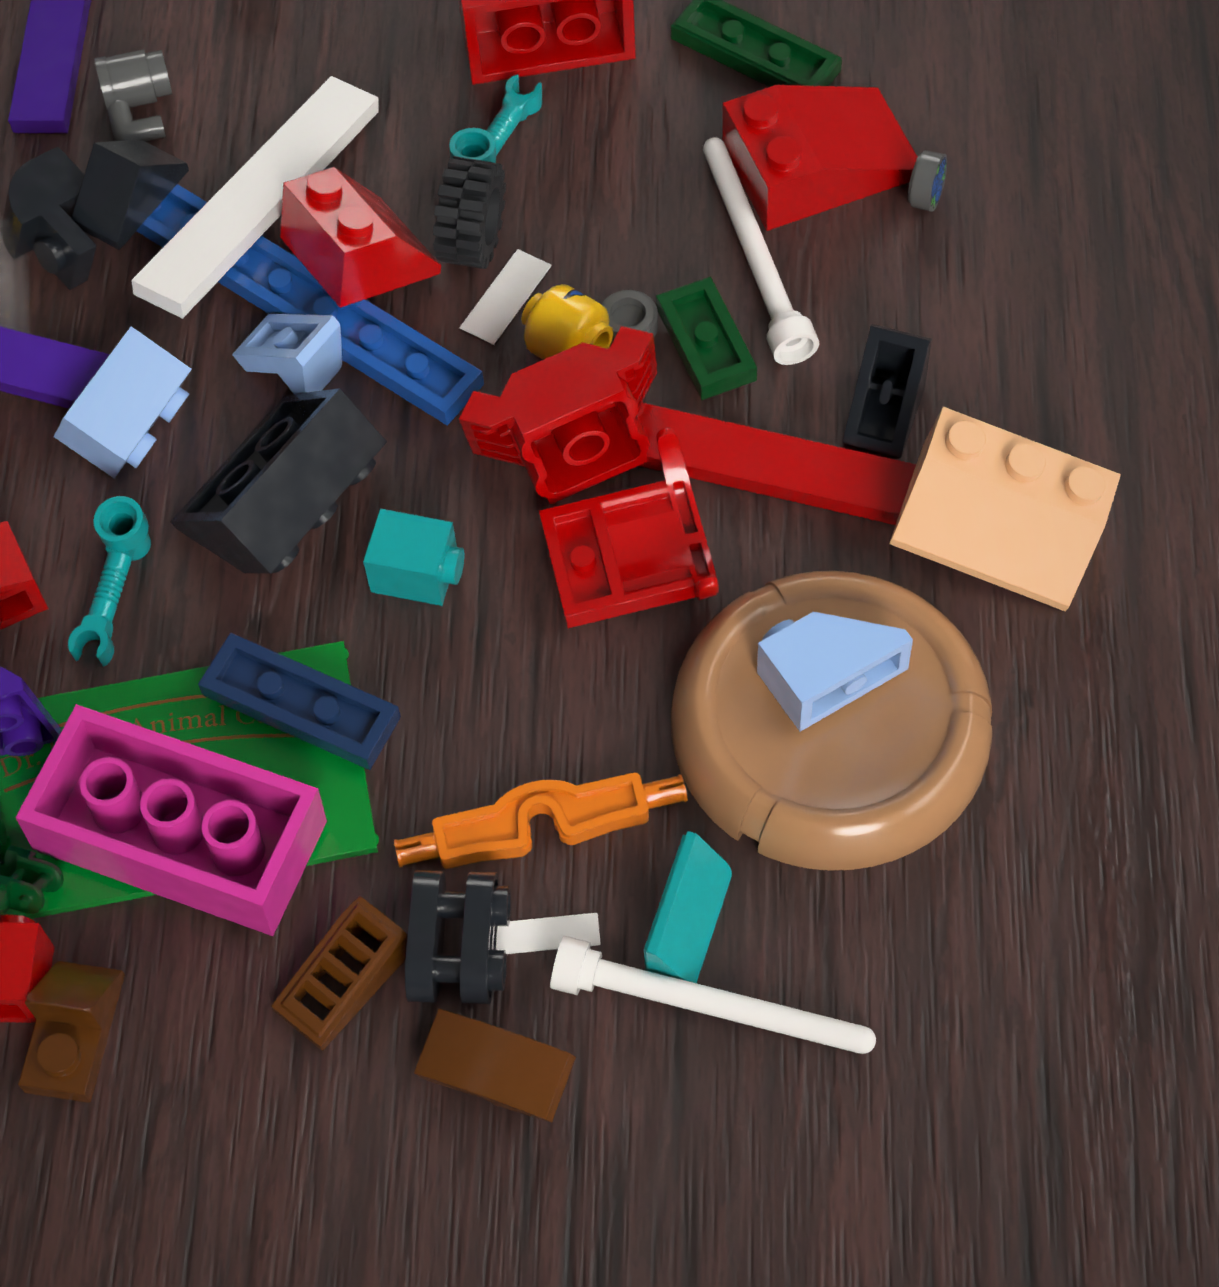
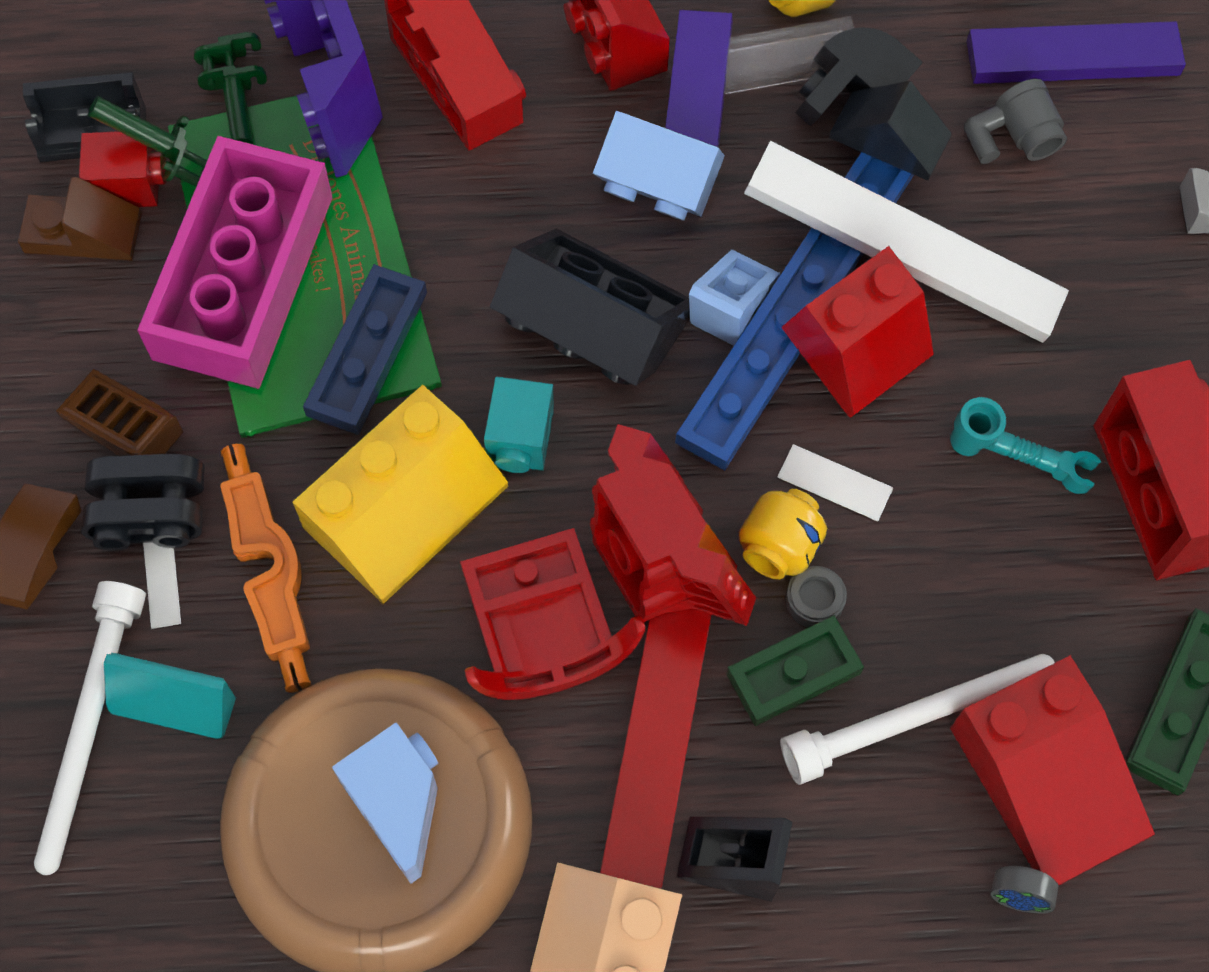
camera: 80 degrees right, 5 degrees up
(125, 533) = (527, 183): teal brick -> none
(469, 212) = (903, 426): black tyre -> none
(476, 676) = (400, 494): none -> yellow slope

